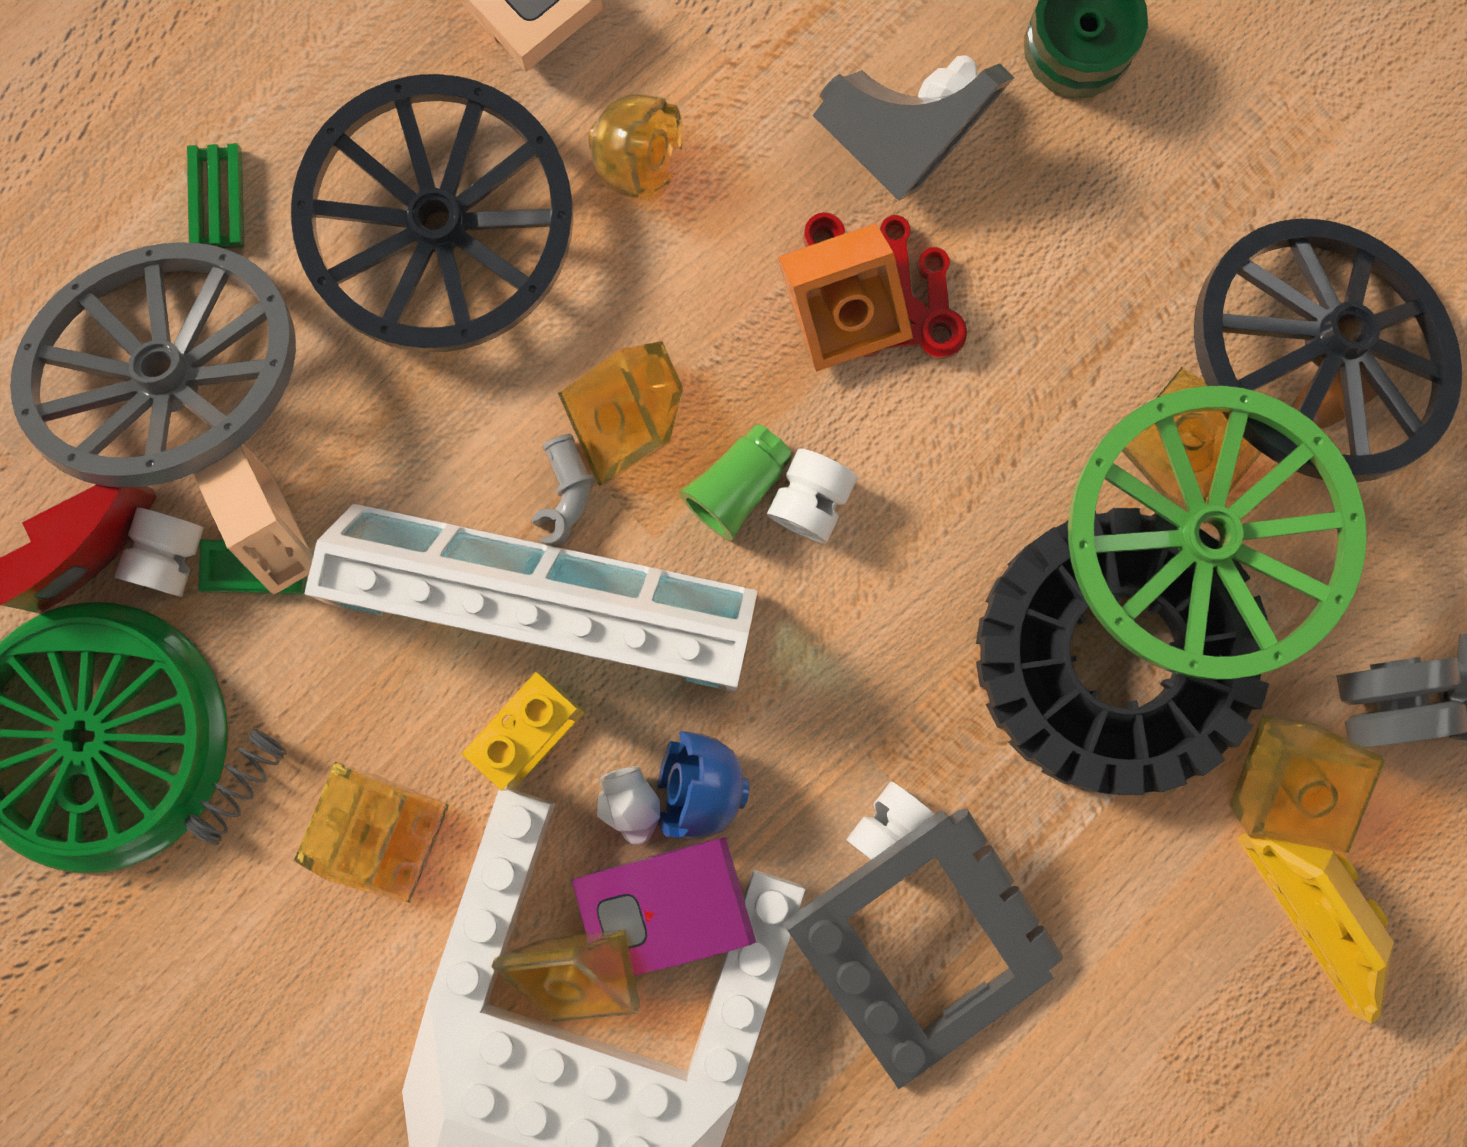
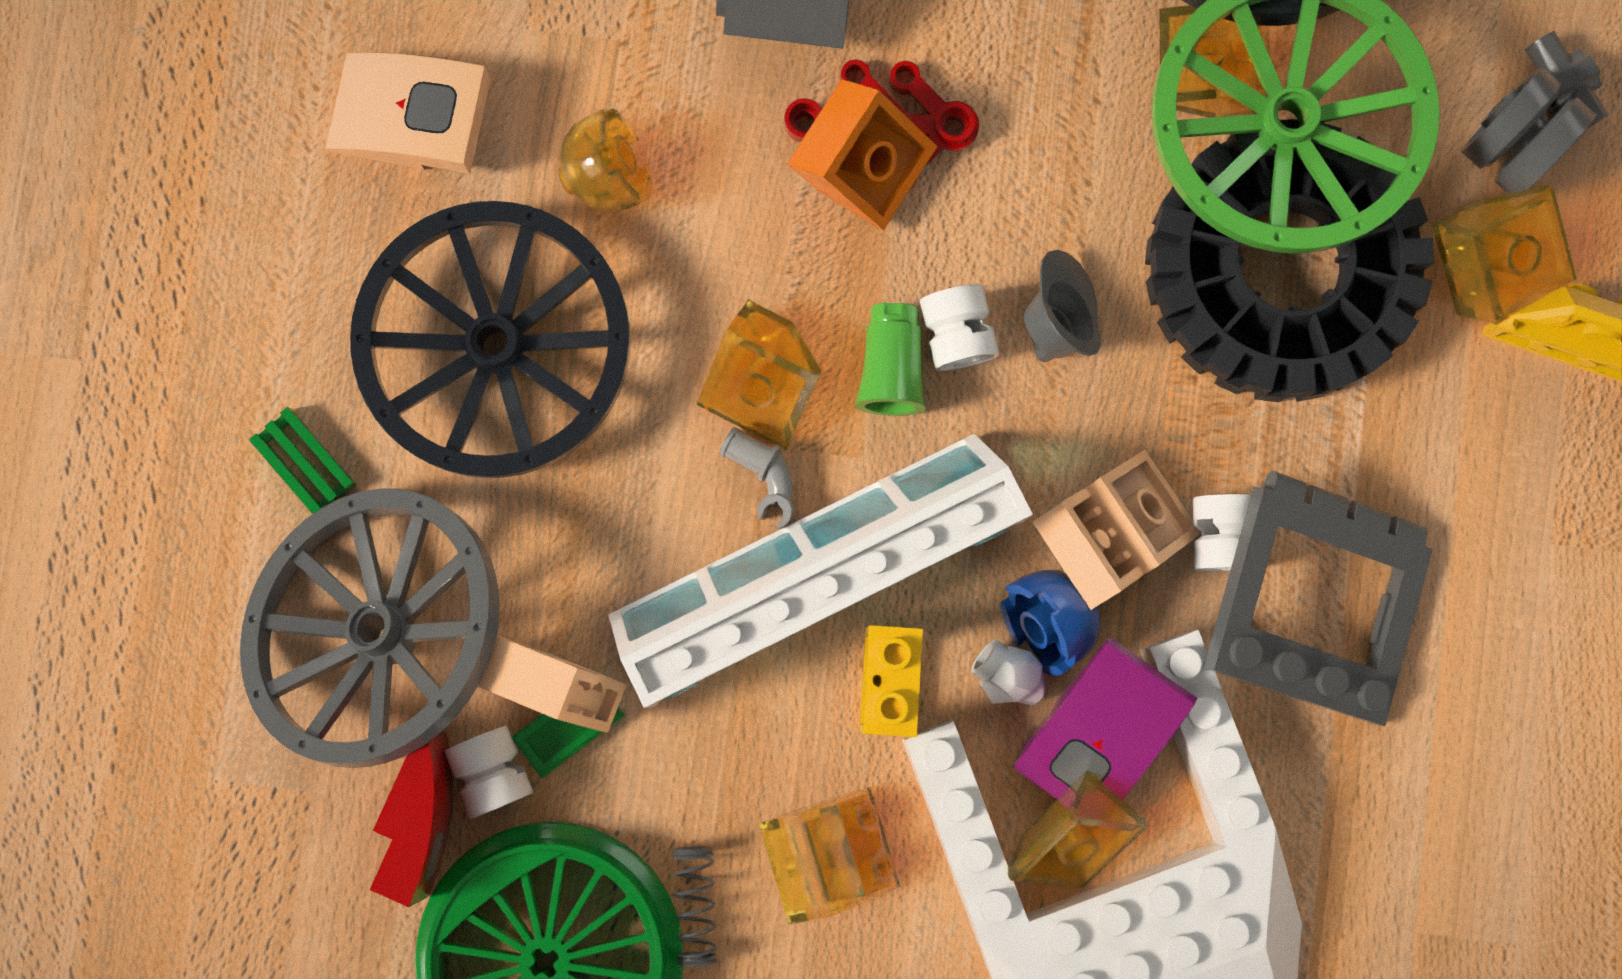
camera: 35 degrees left, 0 degrees up
(807, 756) = (1117, 529): none -> light nougat slope
(909, 548) = (1064, 310): none -> dark grey piece

